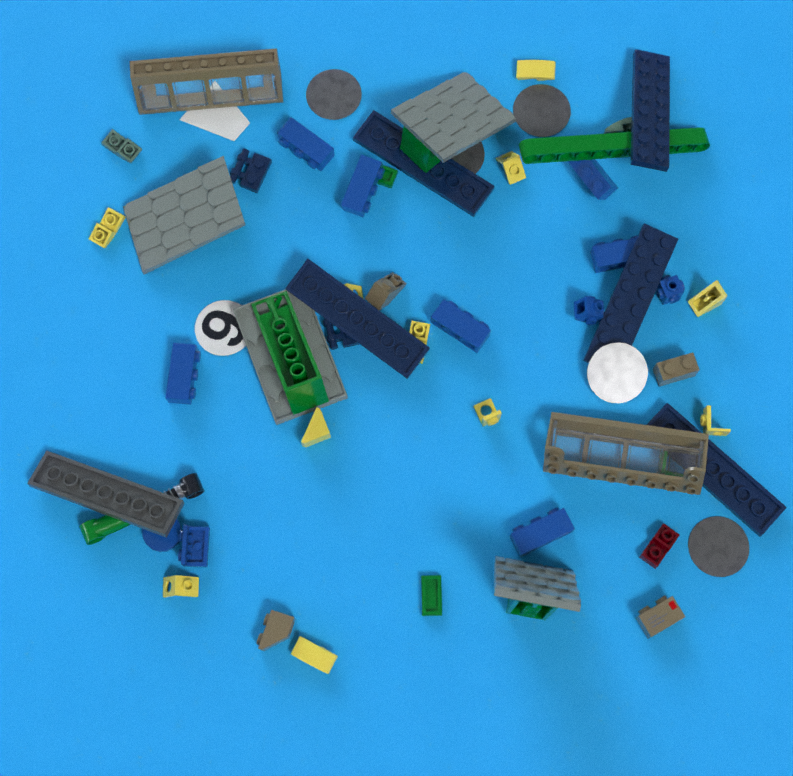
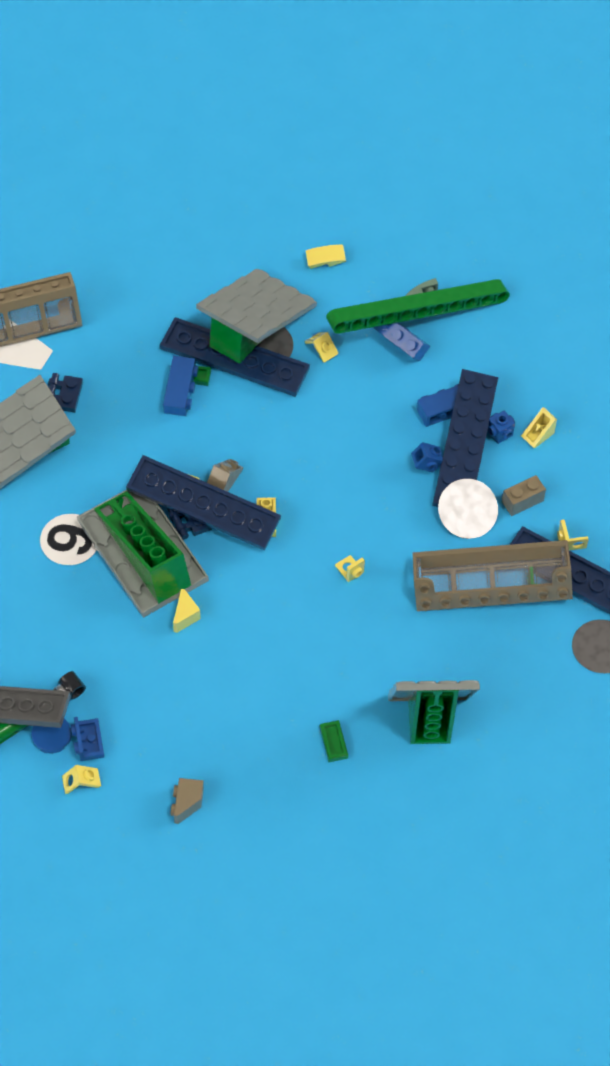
camera: 15 degrees left, 15 degrees down
(182, 373) = (39, 585): blue brick -> none
(305, 144) = (114, 359): blue brick -> none
(314, 655) = (230, 813): light yellow slope -> none
(333, 94) = (131, 311): flat silver sticker -> none
(460, 325) = (305, 494): blue brick -> none
(541, 110) = (339, 289): flat silver sticker -> none
(541, 531) = (429, 661): blue brick -> none
(650, 110) = (445, 270): dark blue plate -> none
(659, 546) = (544, 655): dark red slope -> none
(660, 616) = (560, 716): dark tan brick -> none

